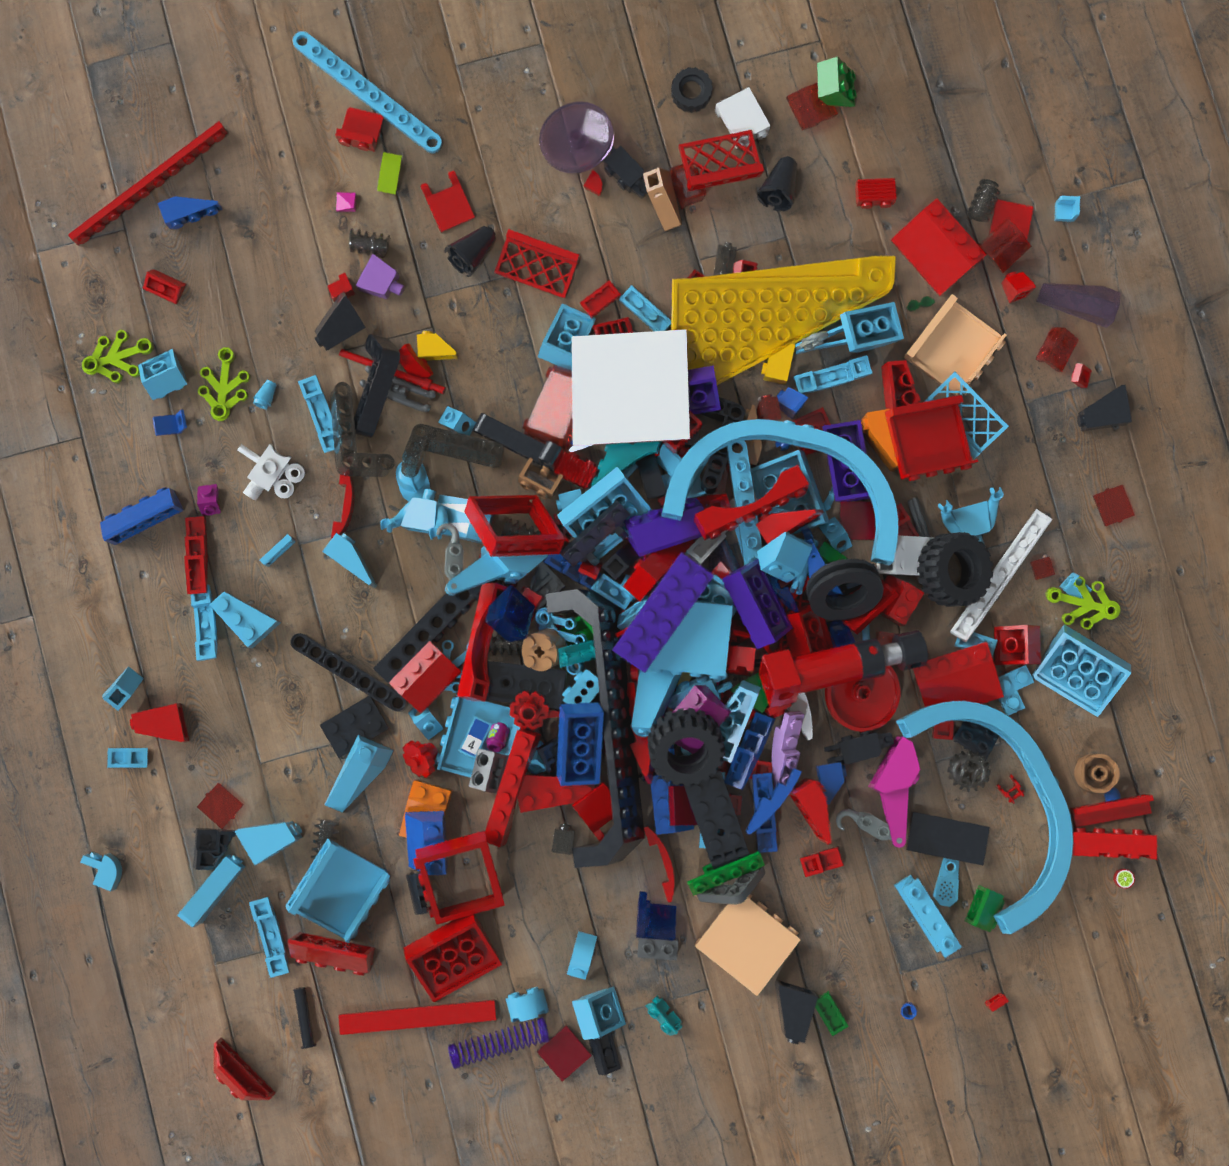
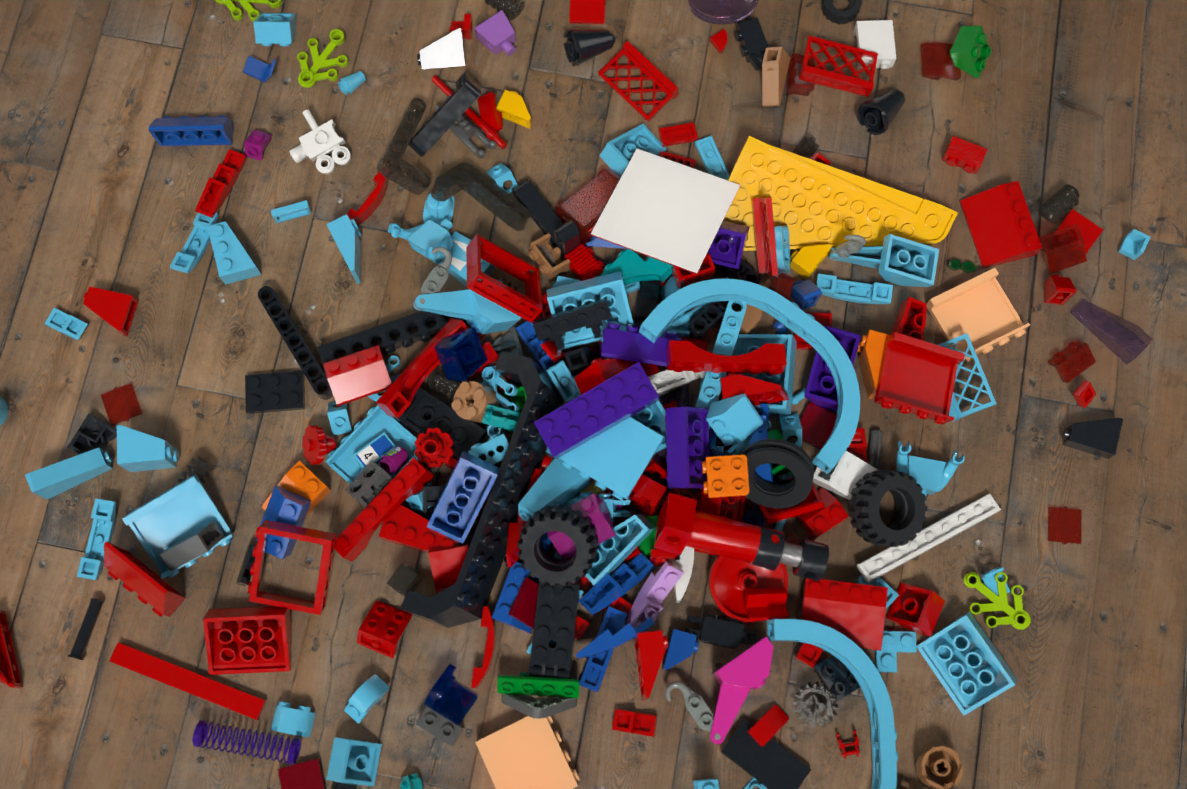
camera: 25 degrees right, 10 degrees down
(122, 688) = (95, 262): medium azure slope -> none
(319, 411) = (390, 113): medium azure slope -> none
(360, 902) = (192, 545): none -> dark grey slope
(361, 767) = (258, 431): medium azure wedge -> none
(564, 888) = (383, 628): none -> red bracket
(730, 365) = (764, 235): none -> red fence
(752, 371) = (782, 249): none -> medium azure hinge
(804, 615) = (726, 476): none -> orange bracket
(888, 706) = (766, 604): none -> red panel
(937, 807) = (768, 725): none -> red slope
(1042, 568) = (971, 550): clear red tile -> none

